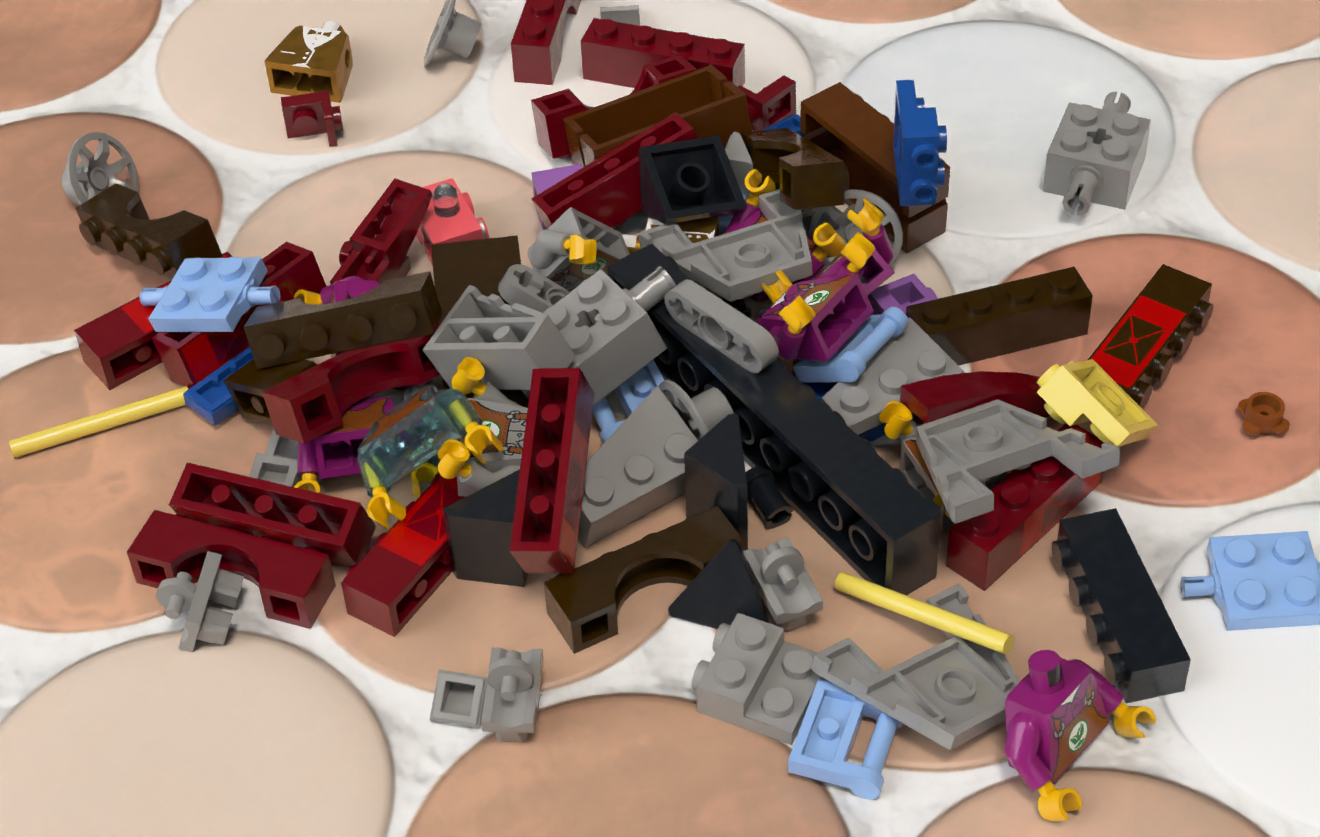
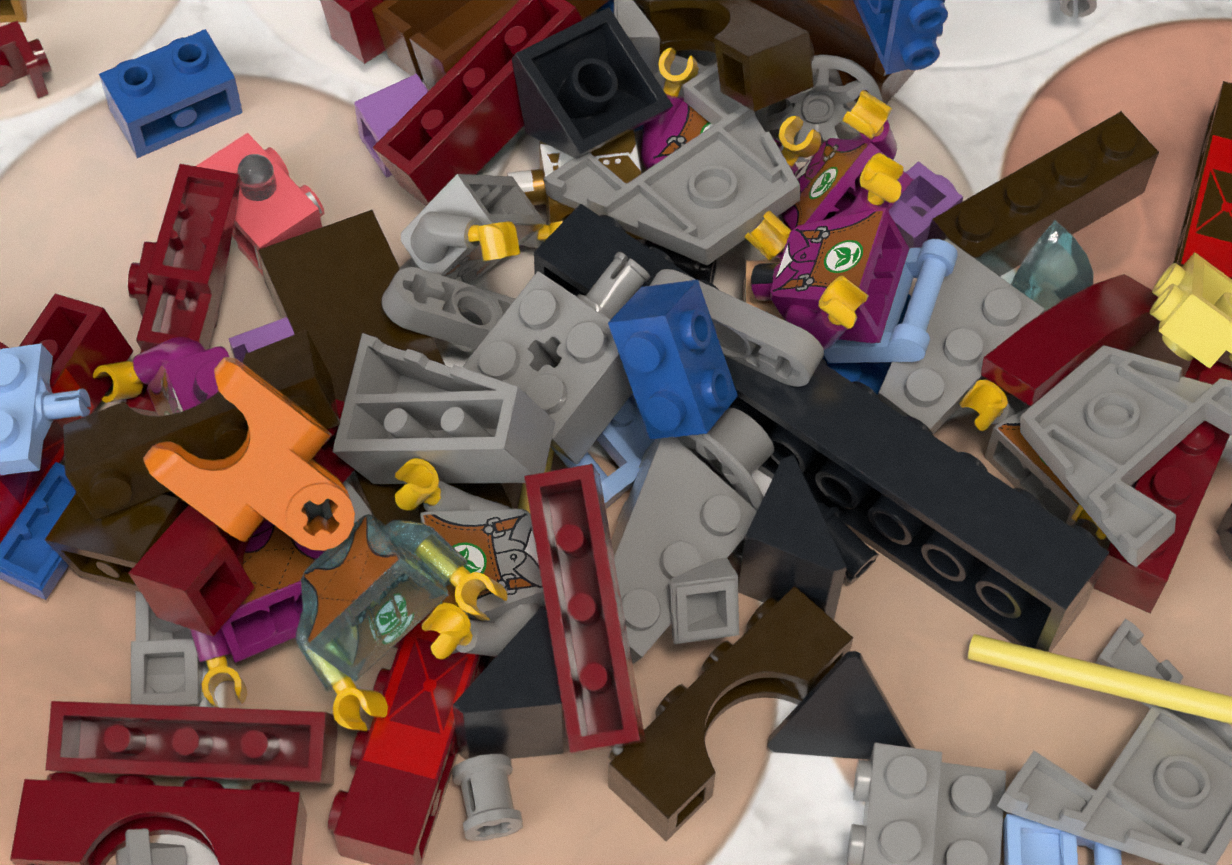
camera: 20 degrees left, 15 degrees up
(368, 343) = (267, 475): none -> orange piece
(415, 152) = (171, 93): none -> blue brick
(457, 593) = (487, 797): none -> light grey bush
(645, 499) = (705, 603): none -> light grey slope
(670, 333) = (673, 359): none -> blue brick
(784, 583) = (914, 676): light grey hips -> none
(986, 350) = (1054, 268): none -> clear light blue brick

